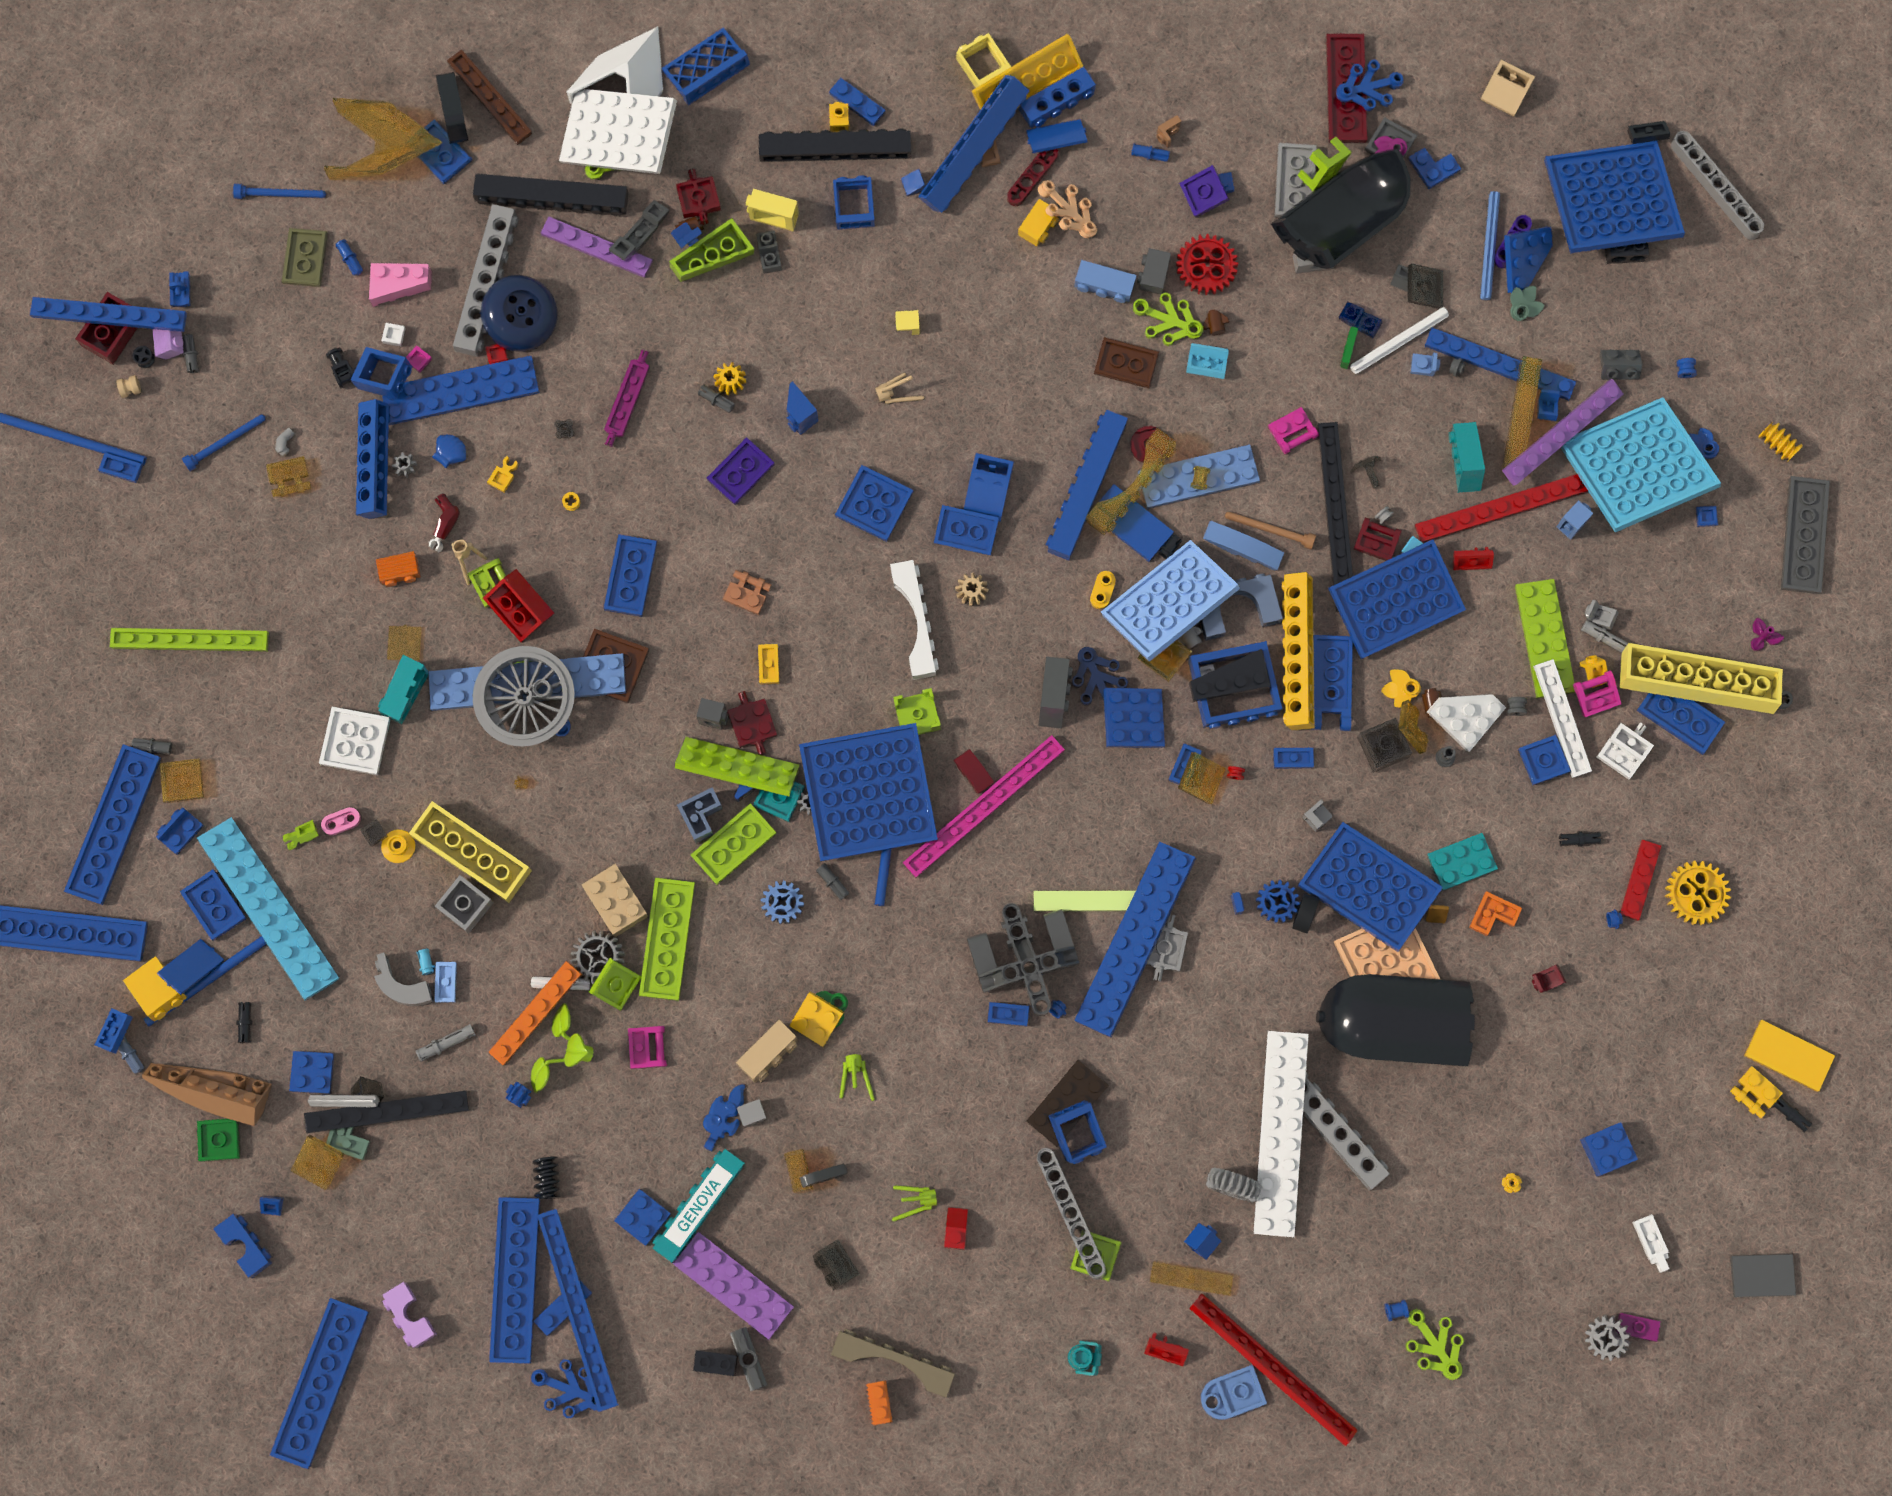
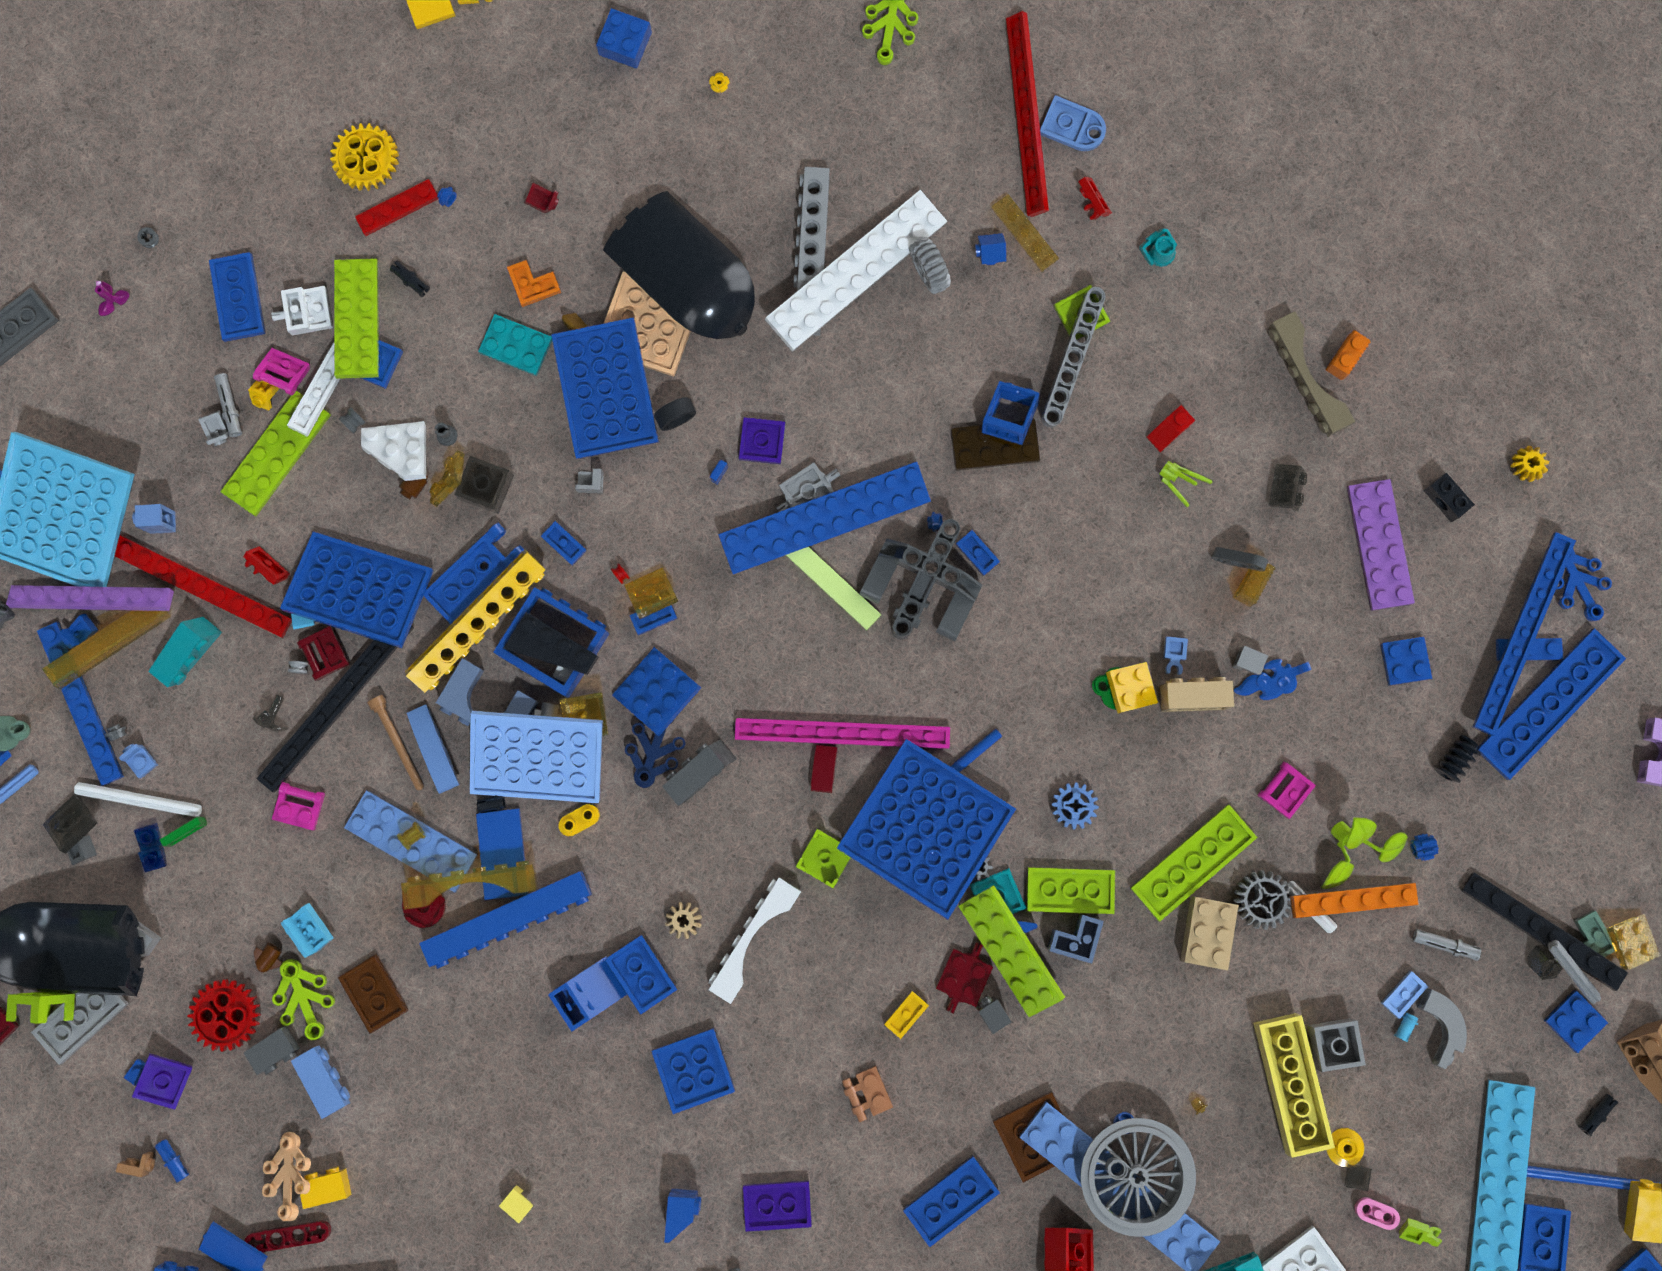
camera: 135 degrees left, 5 degrees up
(190, 966) = (1609, 1203): blue piece -> none
(615, 984) = (1270, 863): lime plate -> none
(684, 1449) = (1524, 469): none -> yellow gear
(698, 1206) = (1356, 627): brick -> none
(753, 1372) = (1423, 466): dark grey piece -> none
(809, 1072) = (1175, 650): none -> medium blue plate
(832, 881) = (1018, 785): dark grey axle -> none
(853, 1065) = (1134, 625): lime plant -> none
(885, 391) = (592, 1161): tan plant -> none
(1229, 953) = (762, 440): none -> dark purple plate
(1285, 906) = (694, 442): blue gear -> none
(1396, 1310) = (894, 71): blue bush -> none
(1398, 687) = (427, 522): yellow plate -> none
(1585, 776) = (356, 318): none -> lime plate
(1701, 678) = (191, 305): light yellow brick -> none
(1706, 516) = (52, 429): blue tile -> none

